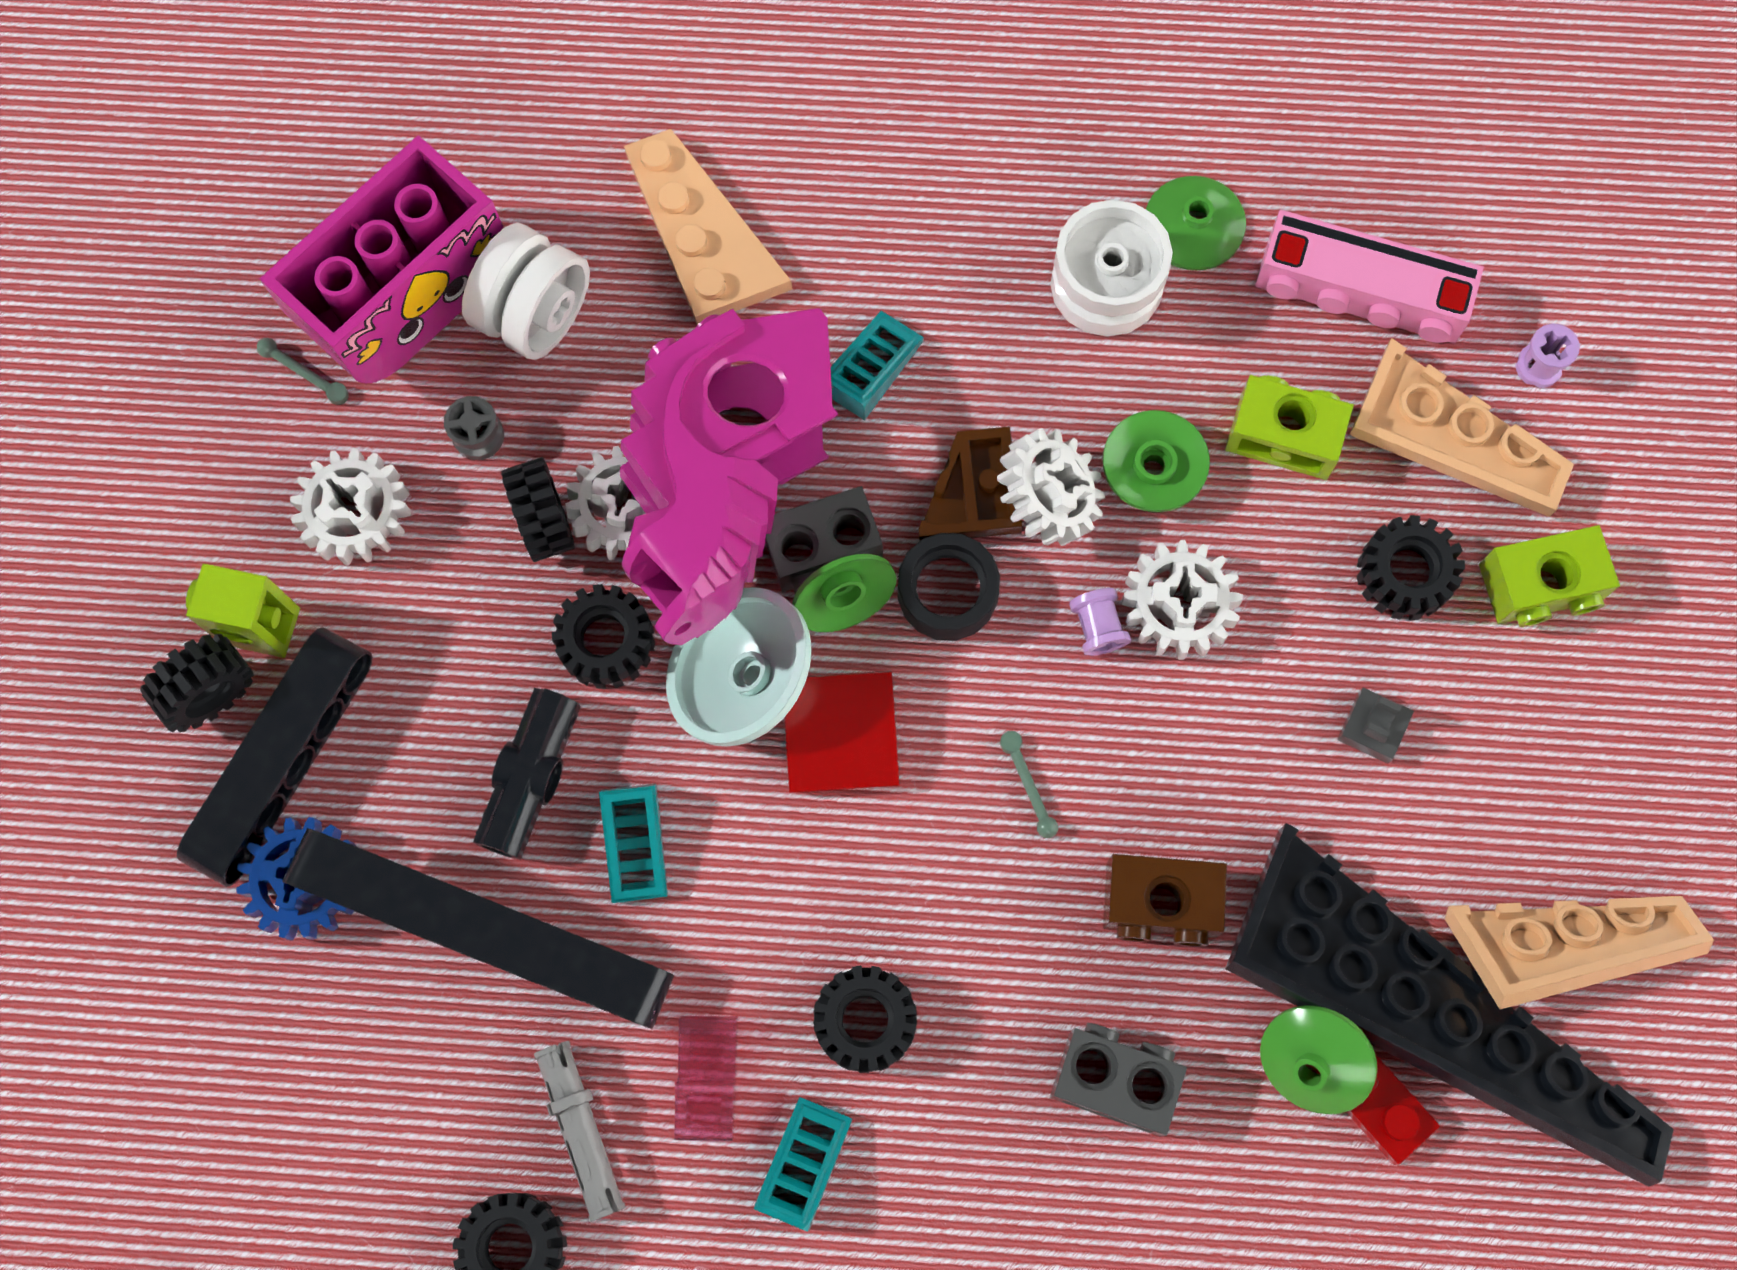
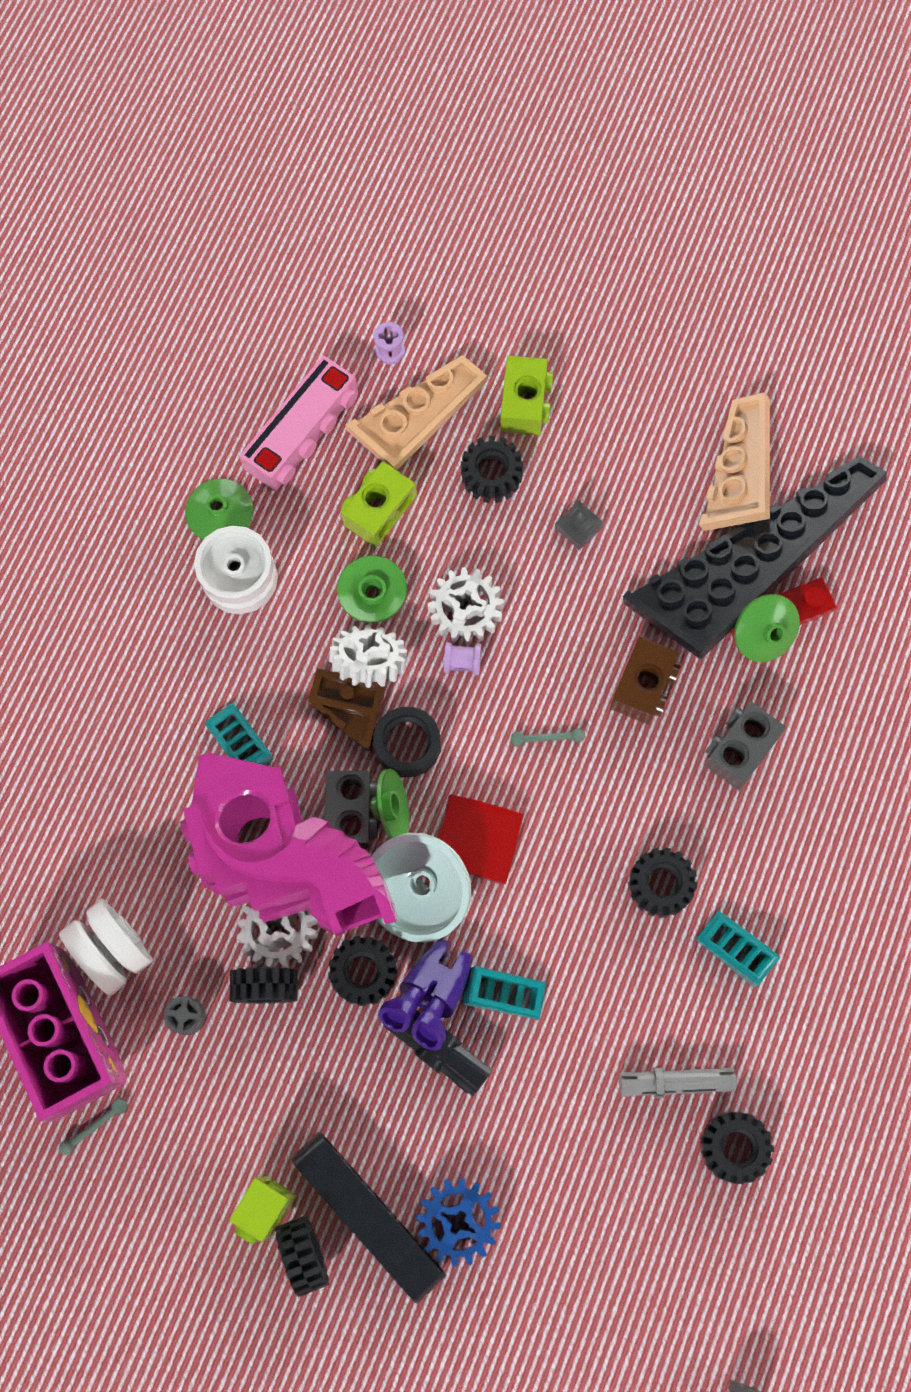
camera: 70 degrees left, 0 degrees up
(370, 490) = (217, 1133): white gear -> none
(478, 928) = (531, 1109): black beam -> none
(602, 735) = (432, 989): none -> dark purple piece
(704, 236) = (106, 820): light nougat wing -> none
(706, 1078) = (667, 992): clear pink slope -> none

